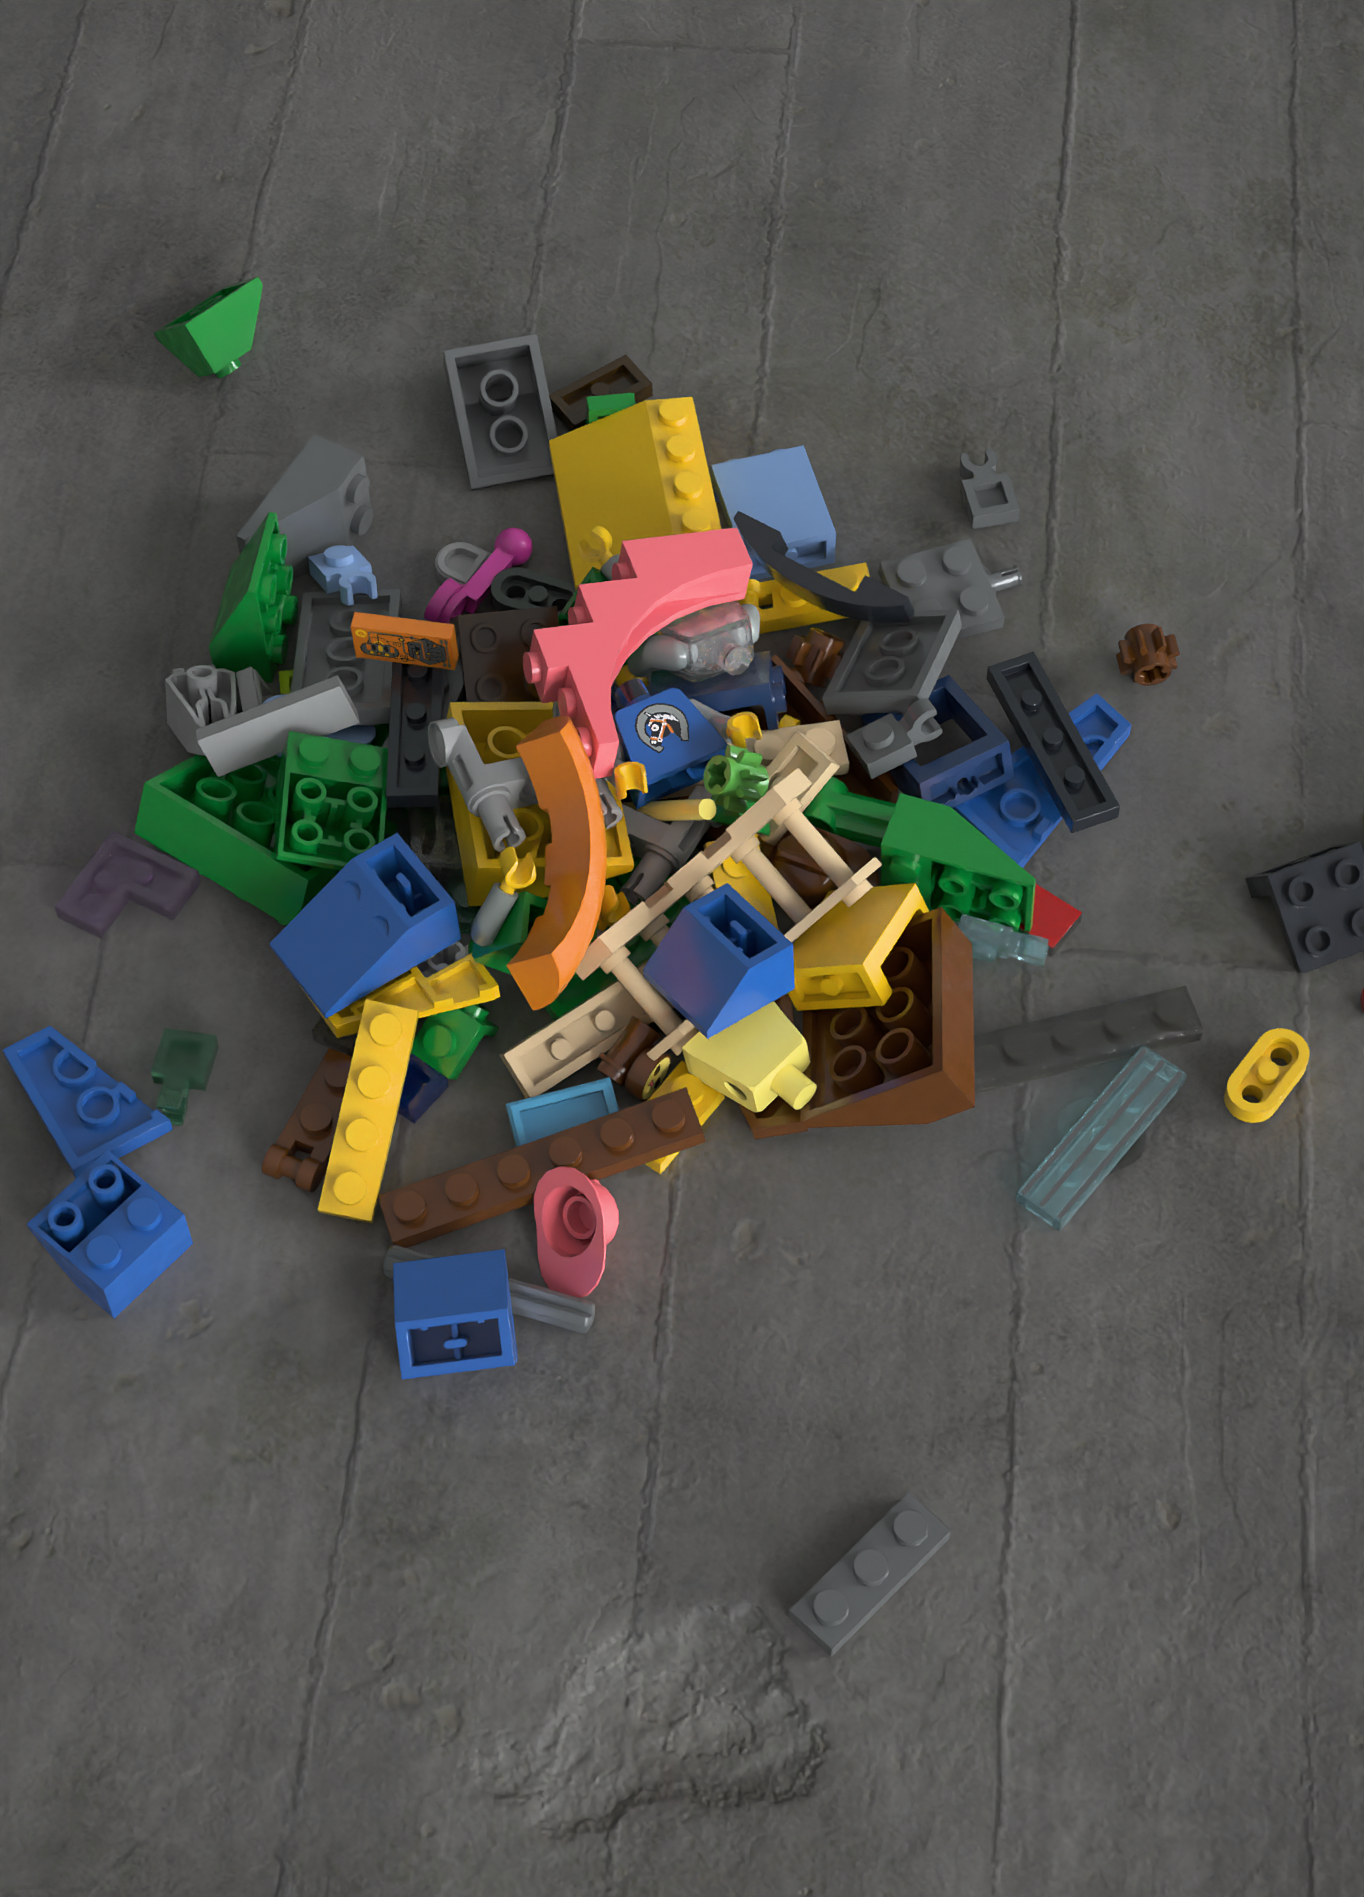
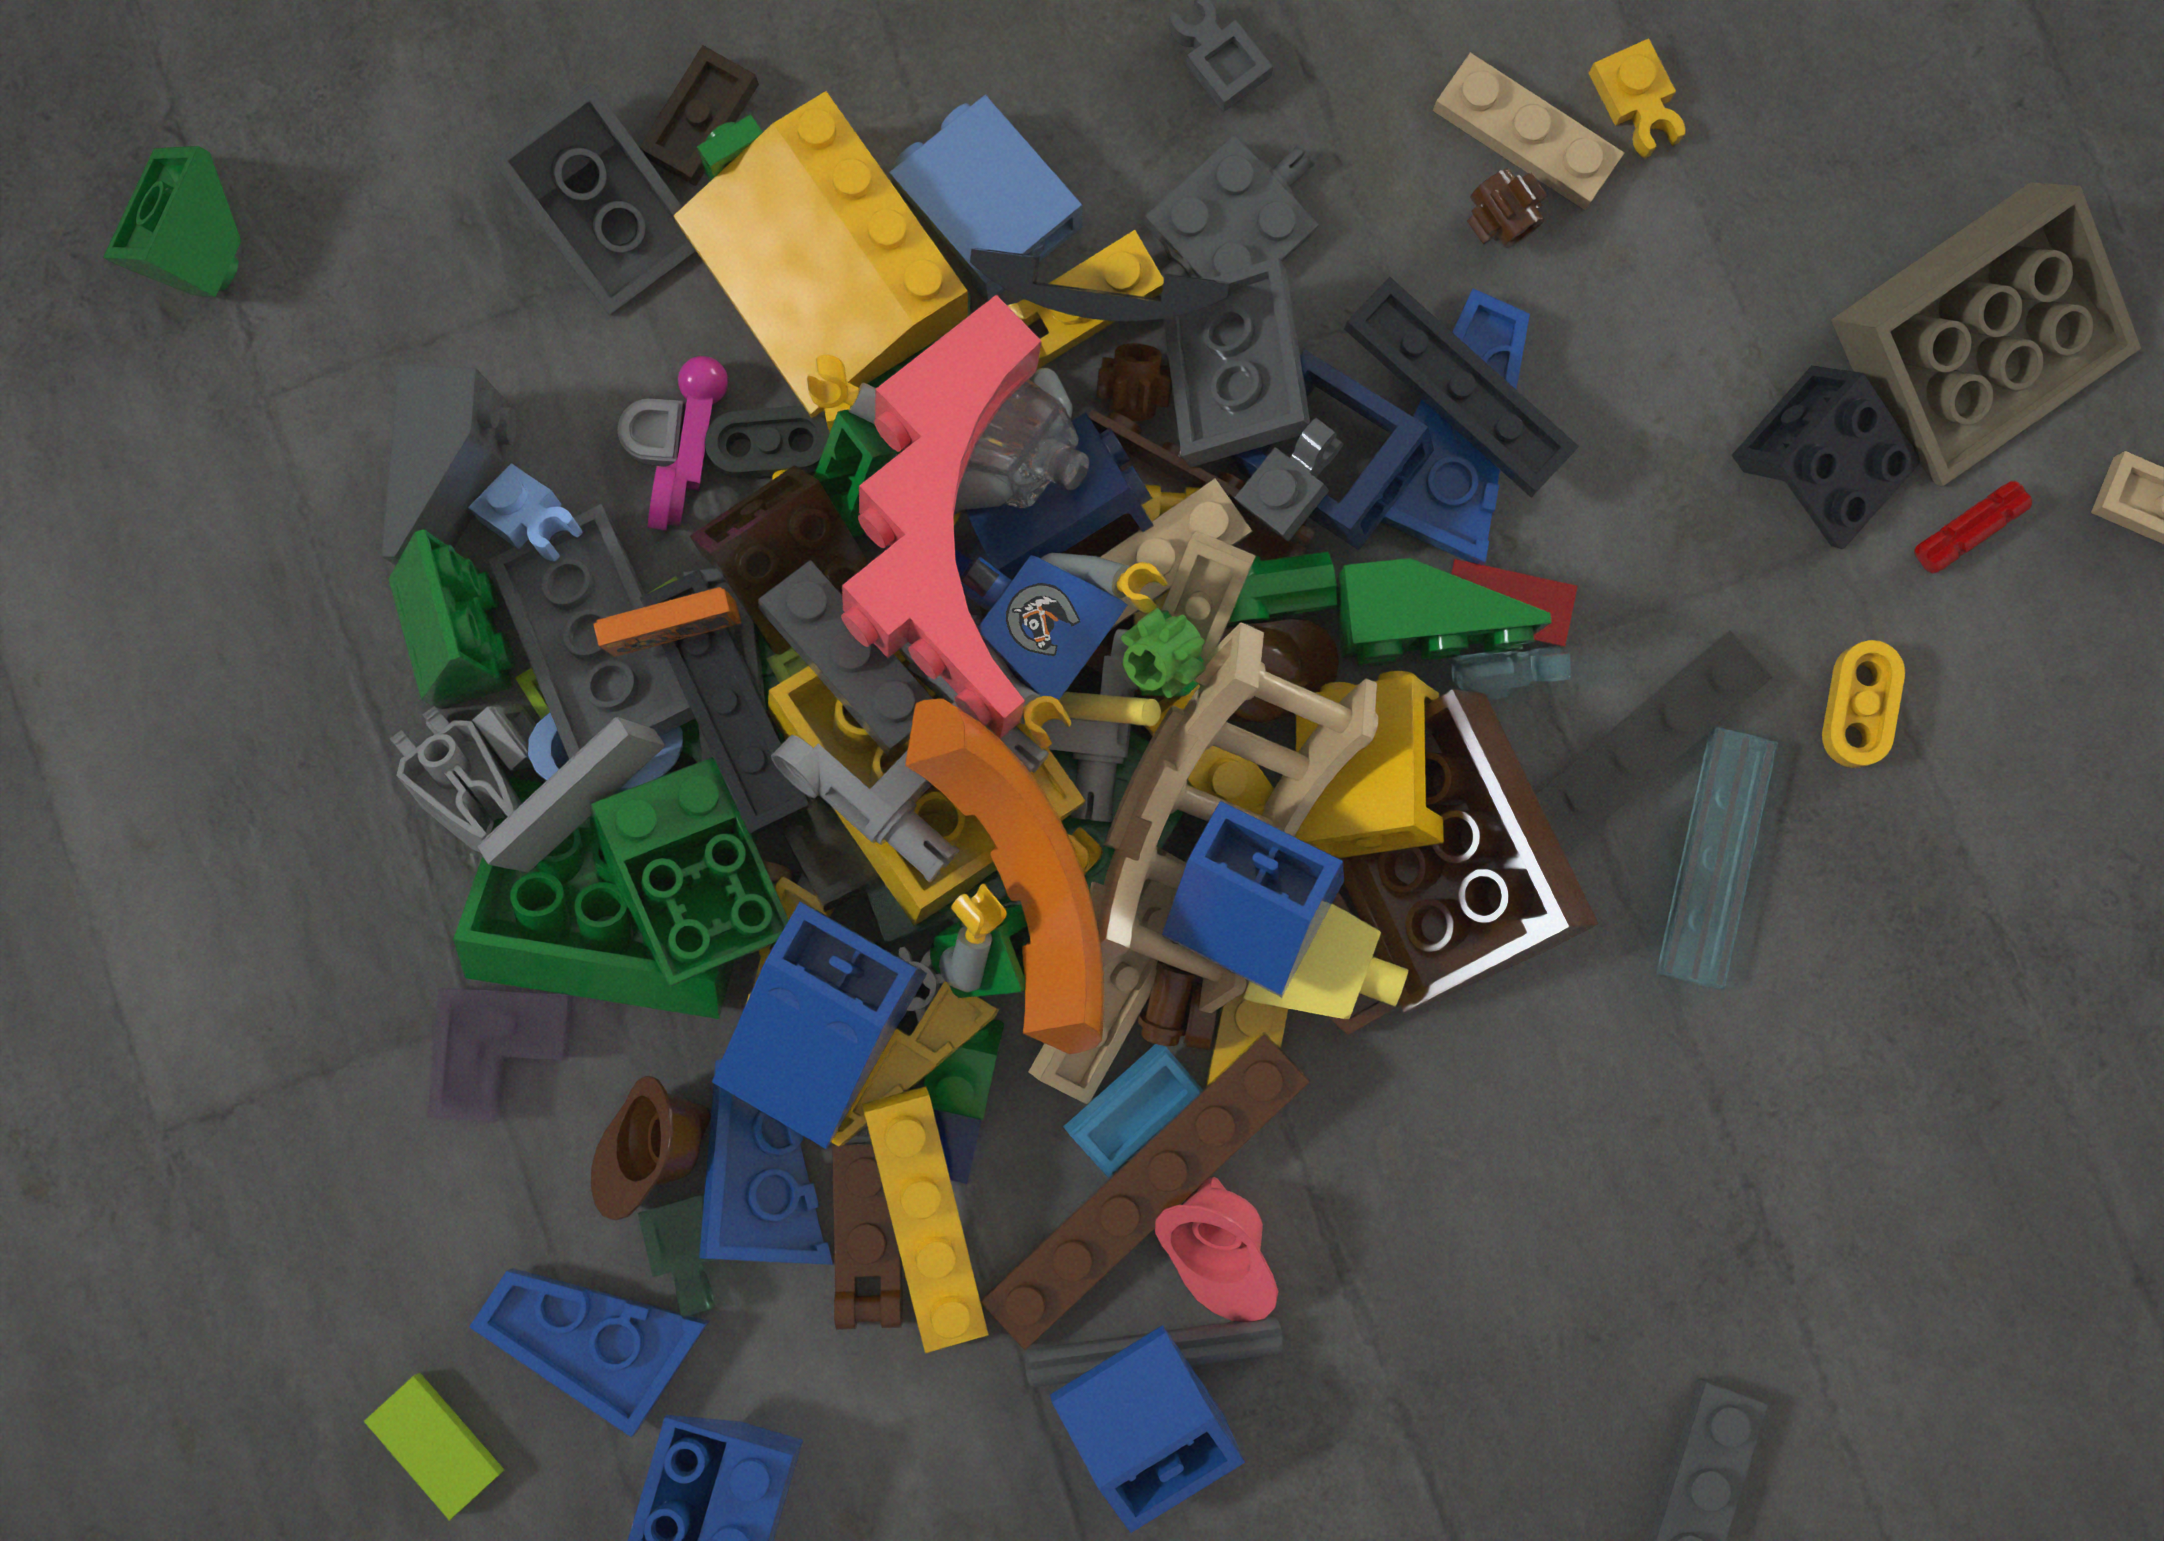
camera: 25 degrees left, 25 degrees up
(204, 990) = (644, 1146): none -> reddish brown piece
(262, 1047) = (757, 1189): none -> blue wing
(509, 697) = (866, 682): none -> dark grey plate
(1193, 620) = (1527, 131): none -> tan plate
(1286, 626) = (1635, 89): none -> yellow plate

